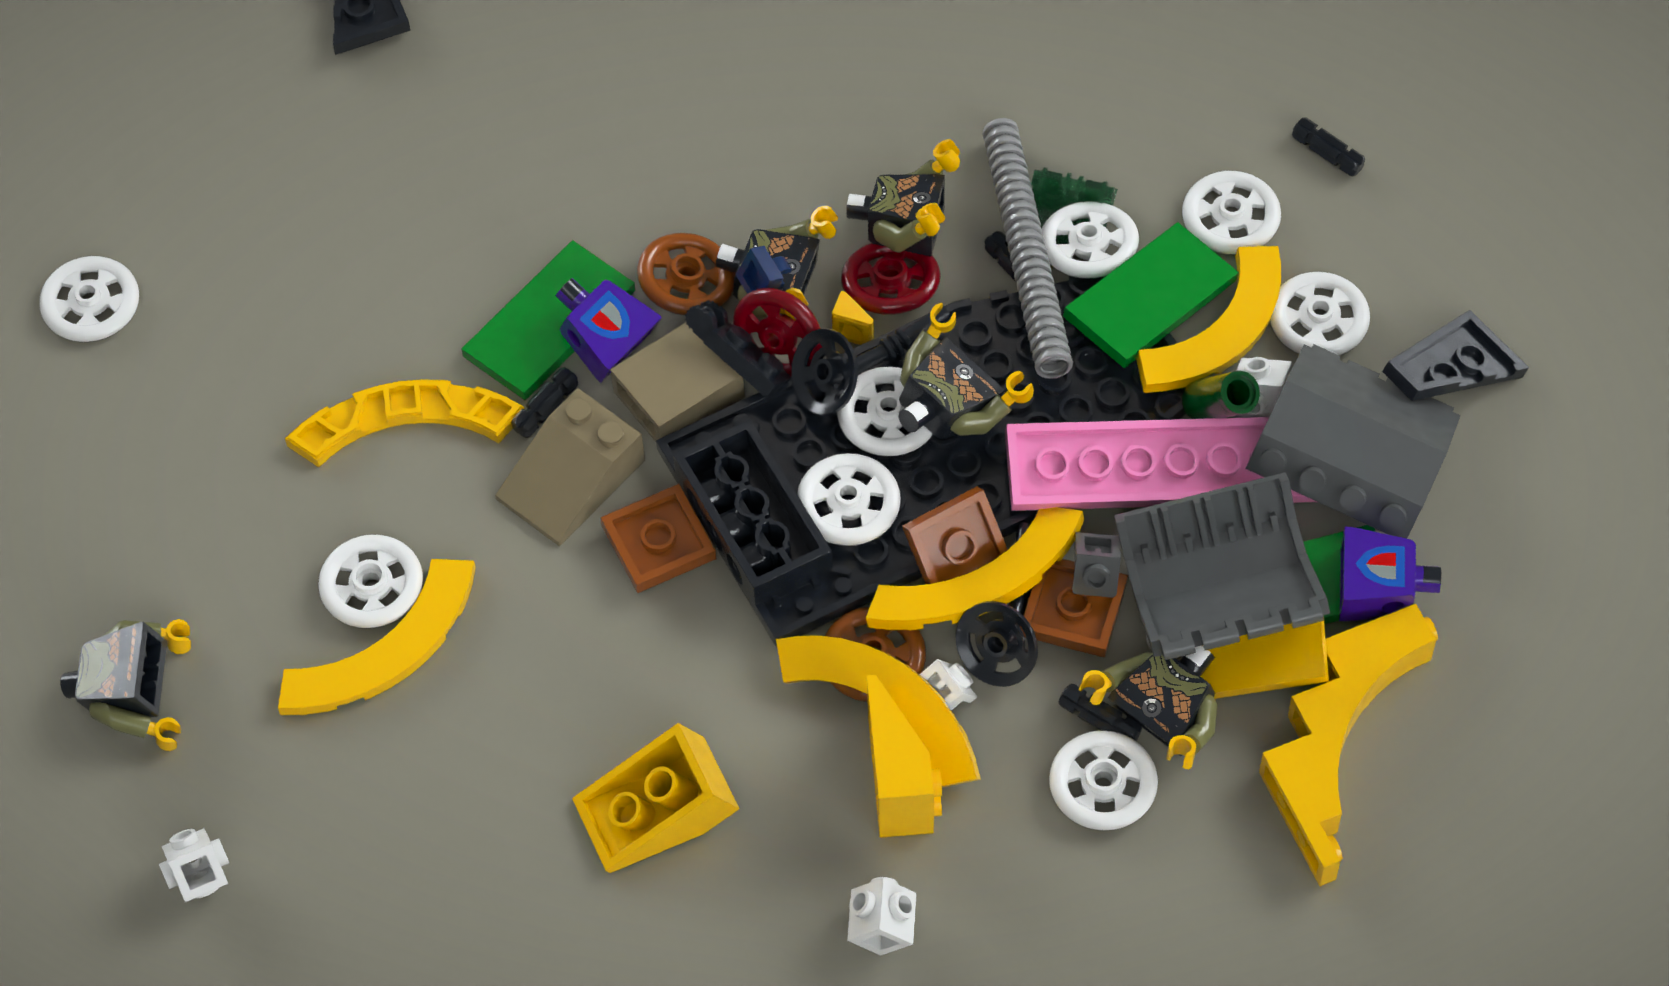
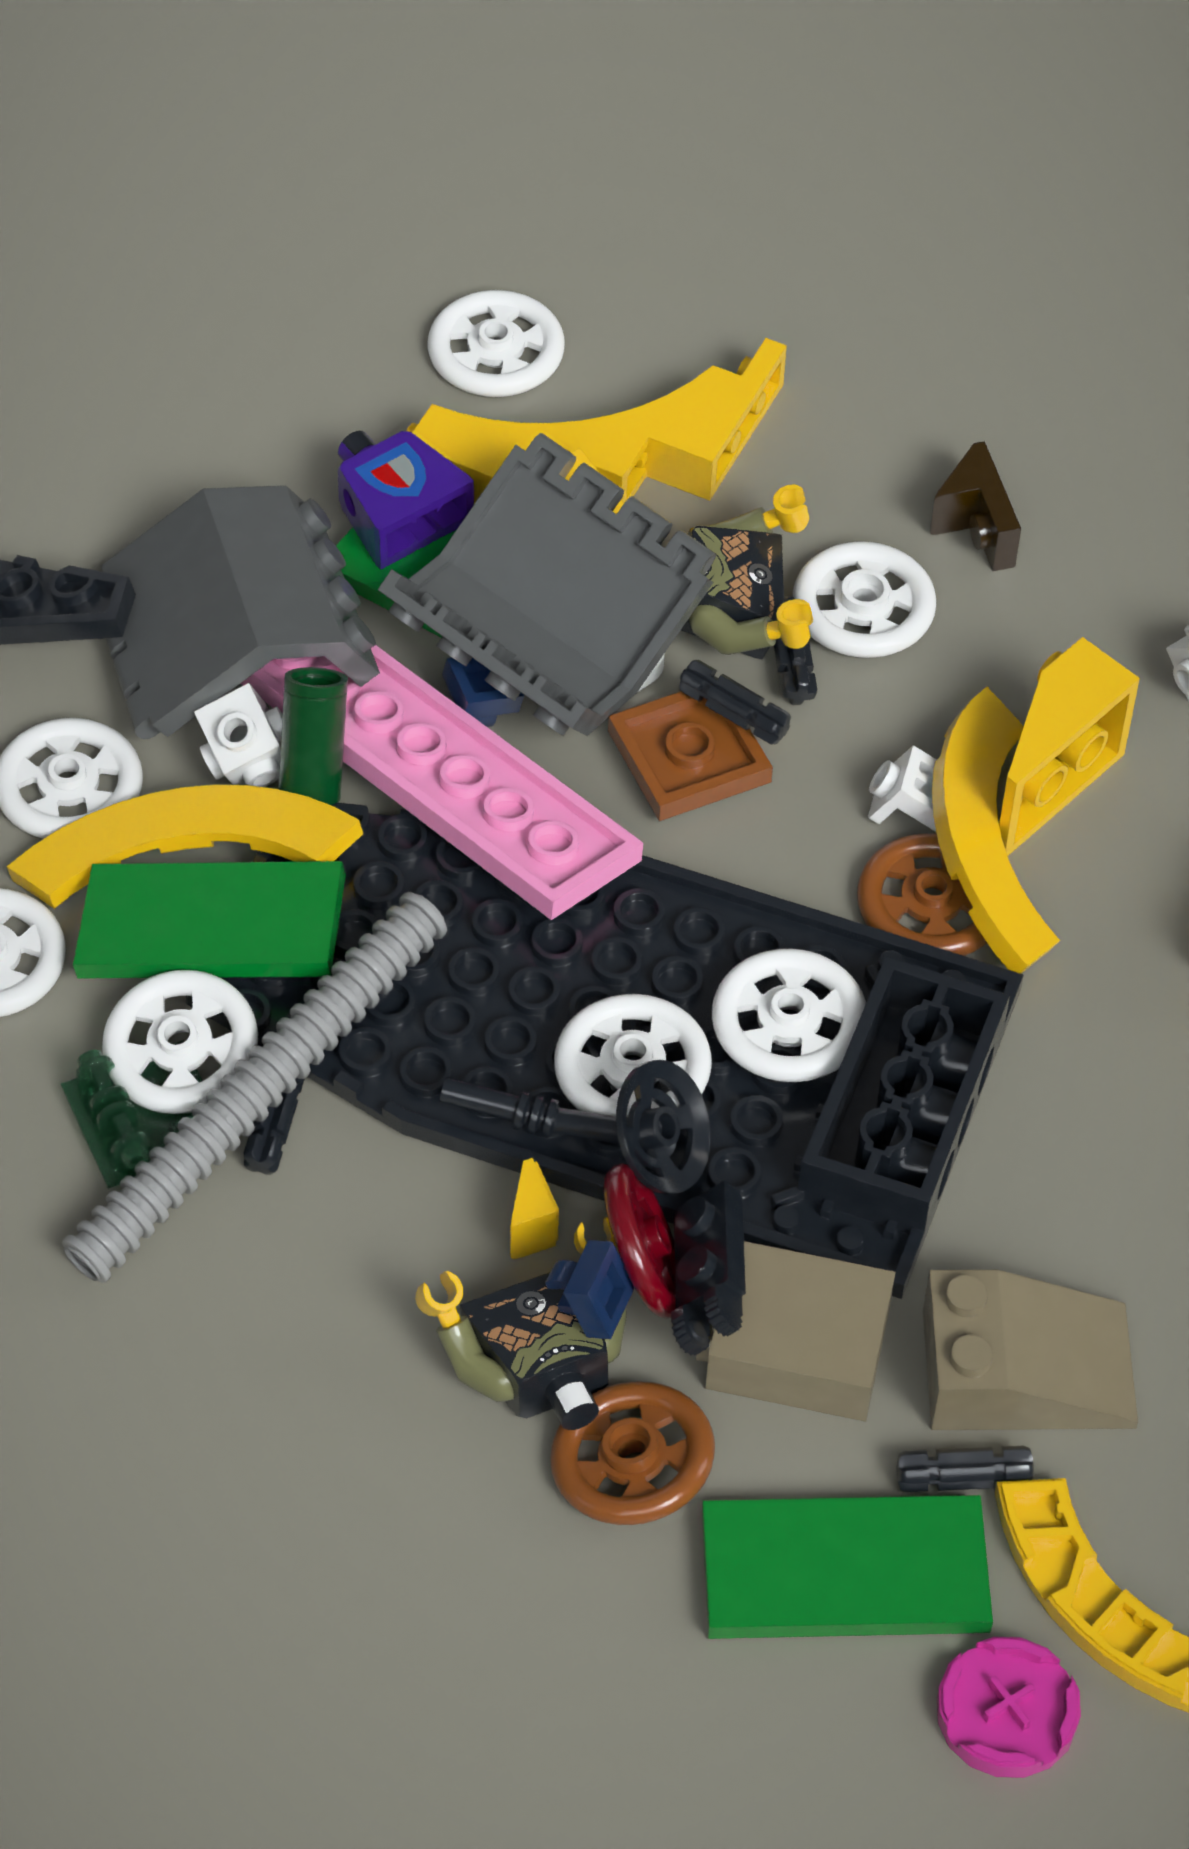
camera: 135 degrees left, 5 degrees down
(421, 331) = (1008, 1707): none -> dark pink tile
(604, 324) = (807, 1456): dark purple torso -> none
(658, 538) = (1018, 1194): dark orange plate -> none
(889, 277) = (377, 1196): dark red plate -> none
(908, 207) = (316, 1255): torso -> none
(949, 389) = (563, 978): torso -> none
(955, 537) = (759, 881): plate -> none
(1000, 580) = (764, 814): yellow tile -> none
(1002, 638) = (811, 764): black dish -> none
(1076, 631) = (735, 702): none -> black axle
(1096, 564) = (628, 733): dark grey bracket -> none
(1119, 899) = (978, 501): none -> dark brown slope
(1465, 773) = (504, 307): none -> white plate

